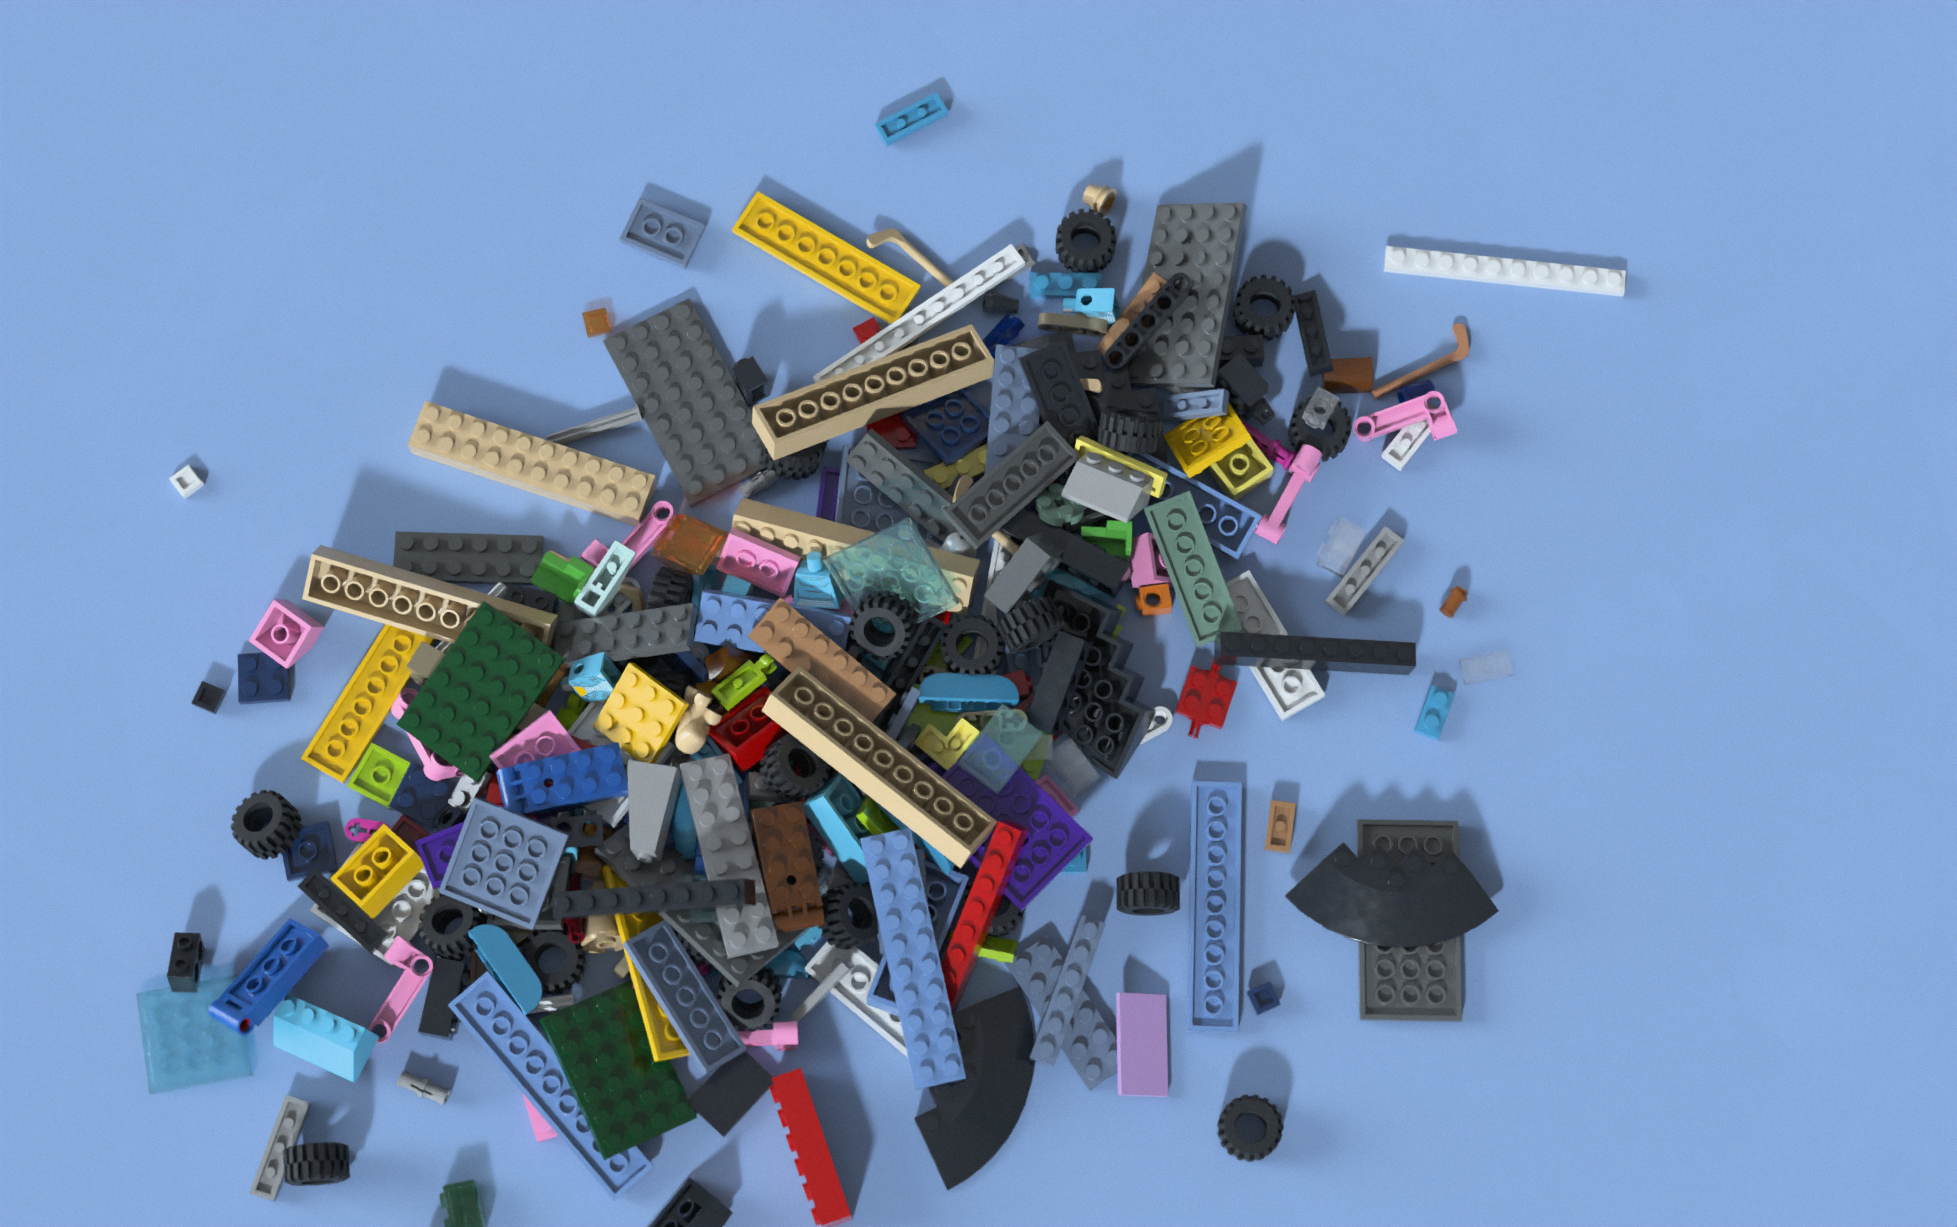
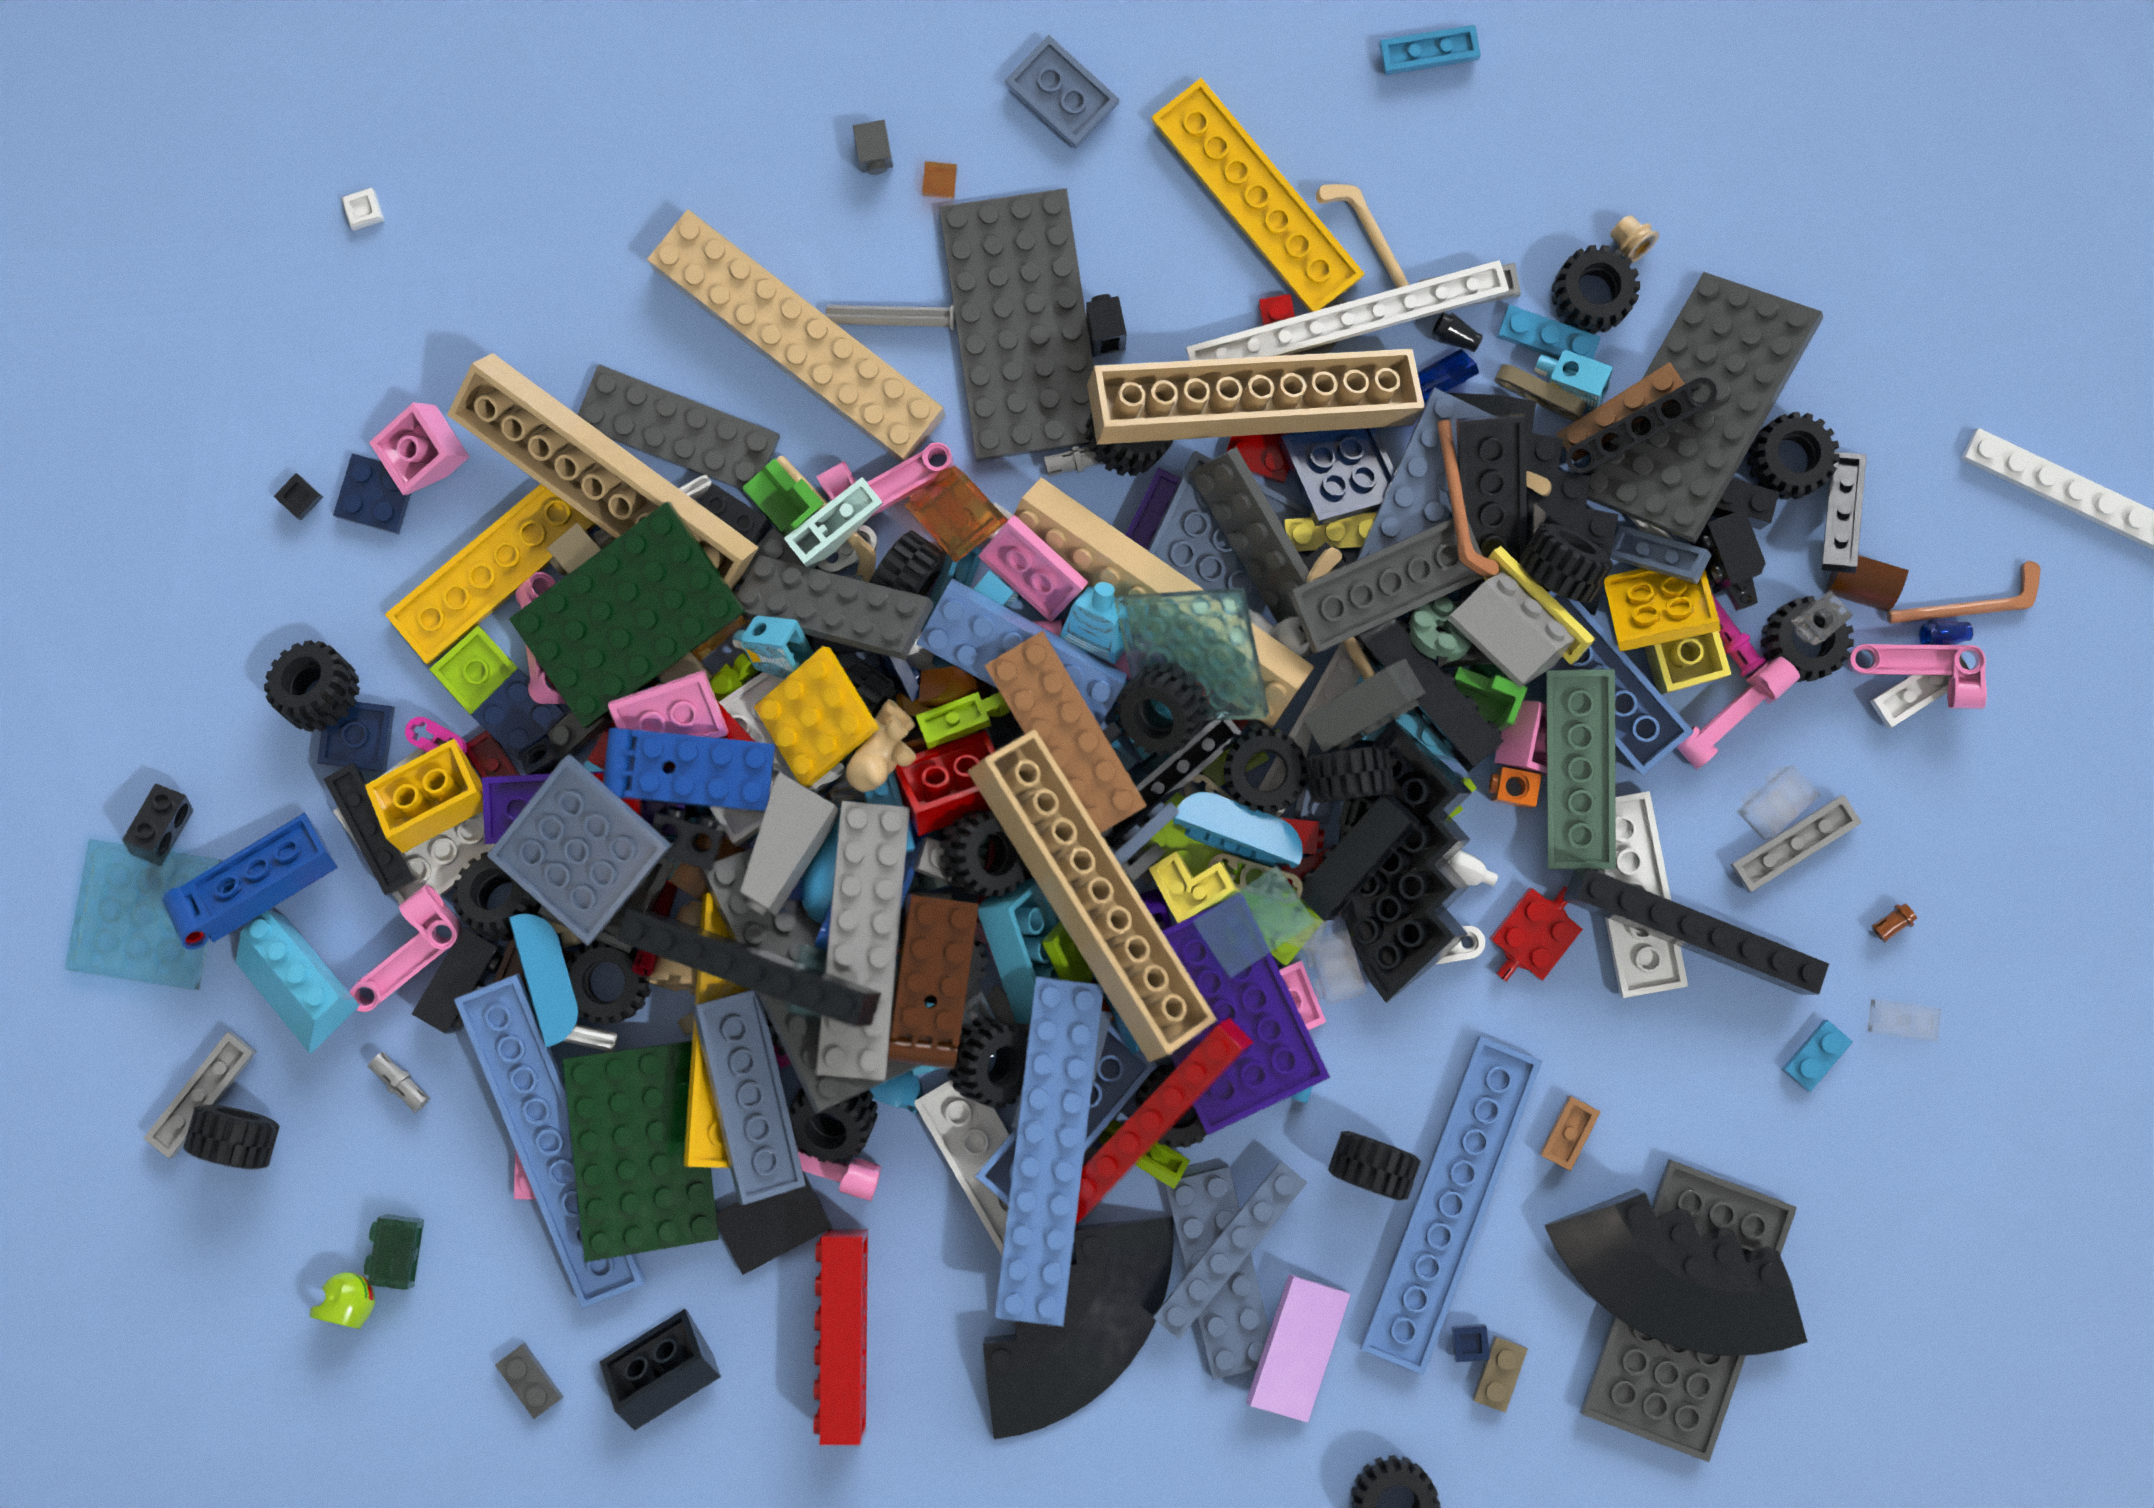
camera: 20 degrees right, 10 degrees up
(541, 315) = (873, 147): none -> dark grey brick
(822, 990) = (926, 1141): light grey tile -> none
(1057, 446) = (1466, 552): none -> nougat piece
(1144, 667) = (1472, 869): none -> white plant
(1293, 1014) = (1499, 1374): none -> dark tan plate

